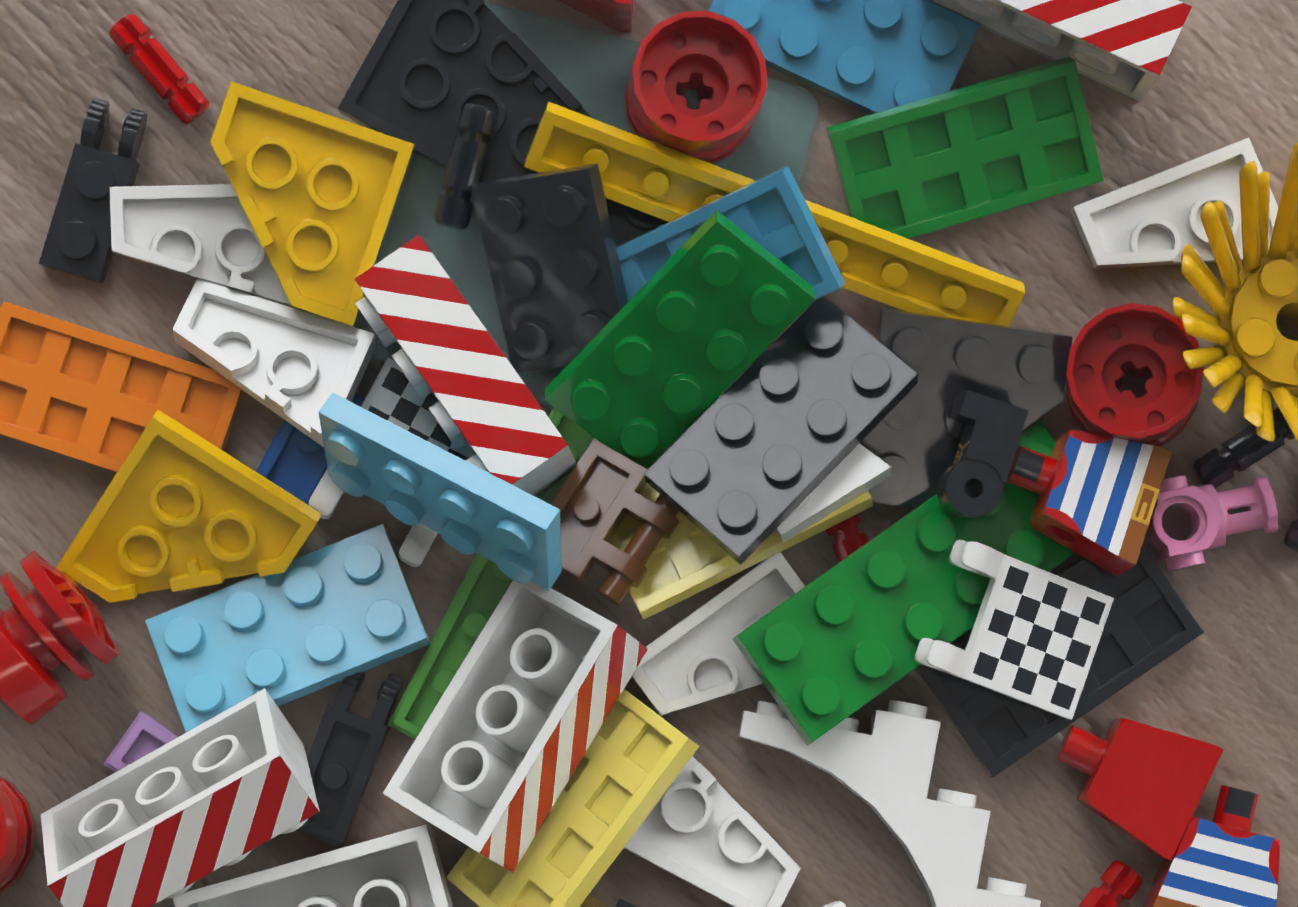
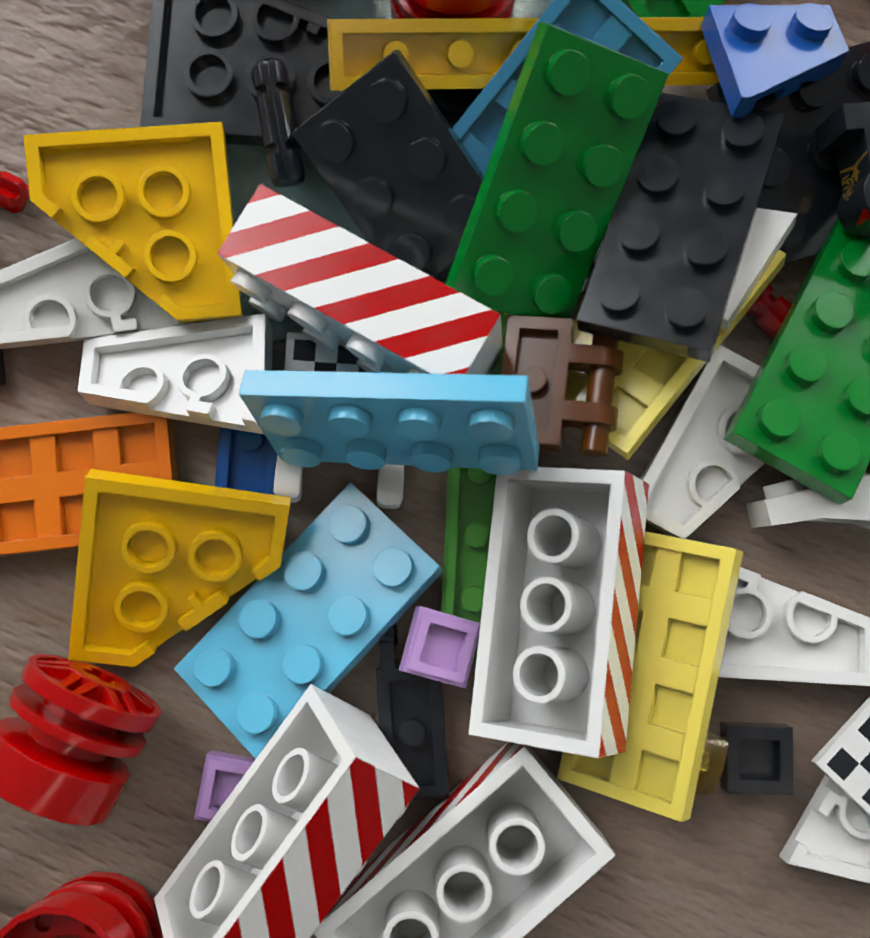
camera: 20 degrees left, 0 degrees up
(393, 709) = (440, 647): none -> lavender tile
(940, 307) = (771, 49): none -> wing

